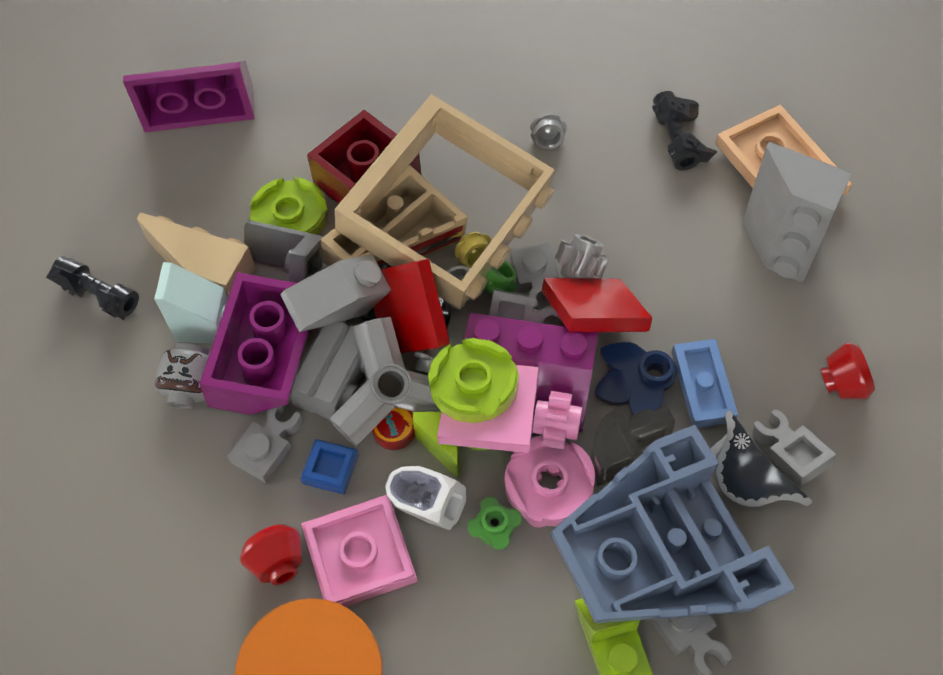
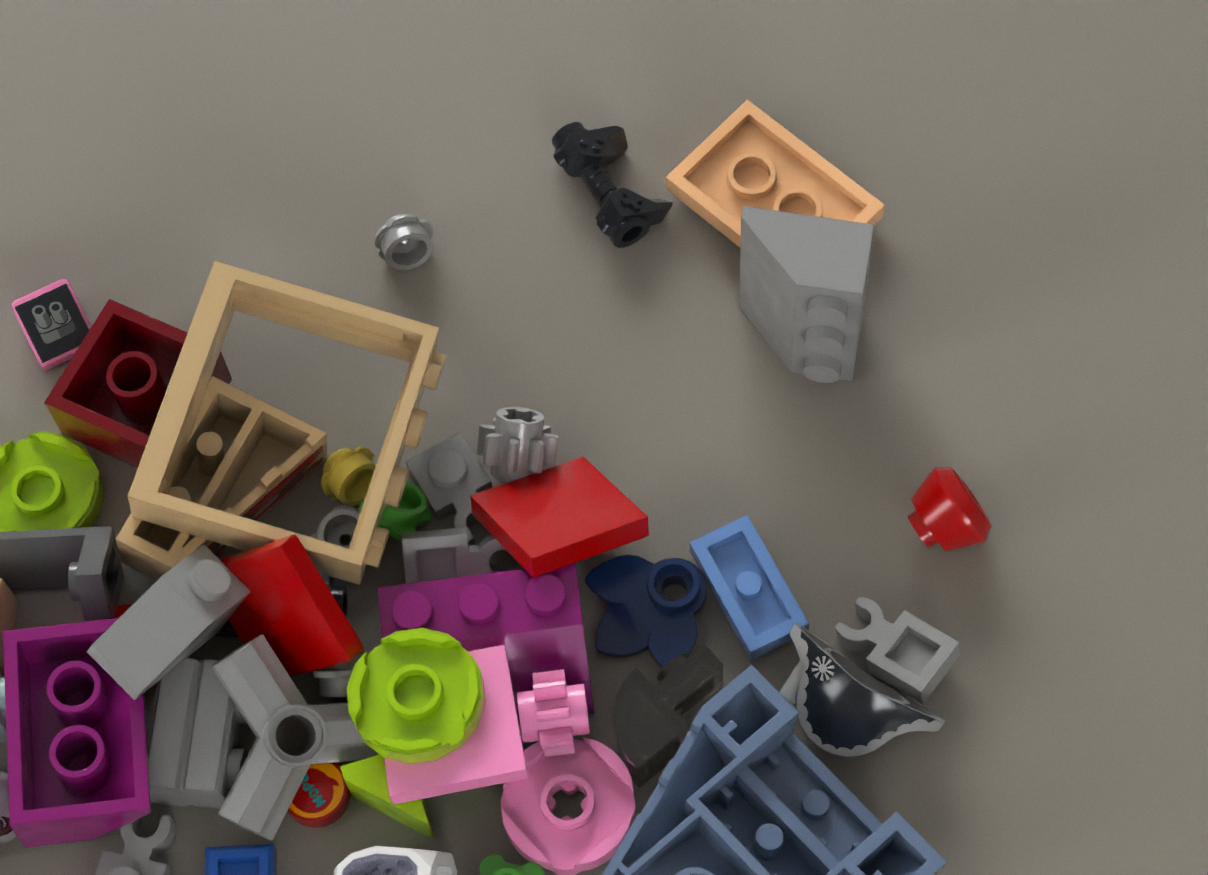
camera: 15 degrees left, 5 degrees up
(327, 117) = (52, 323): none -> slope

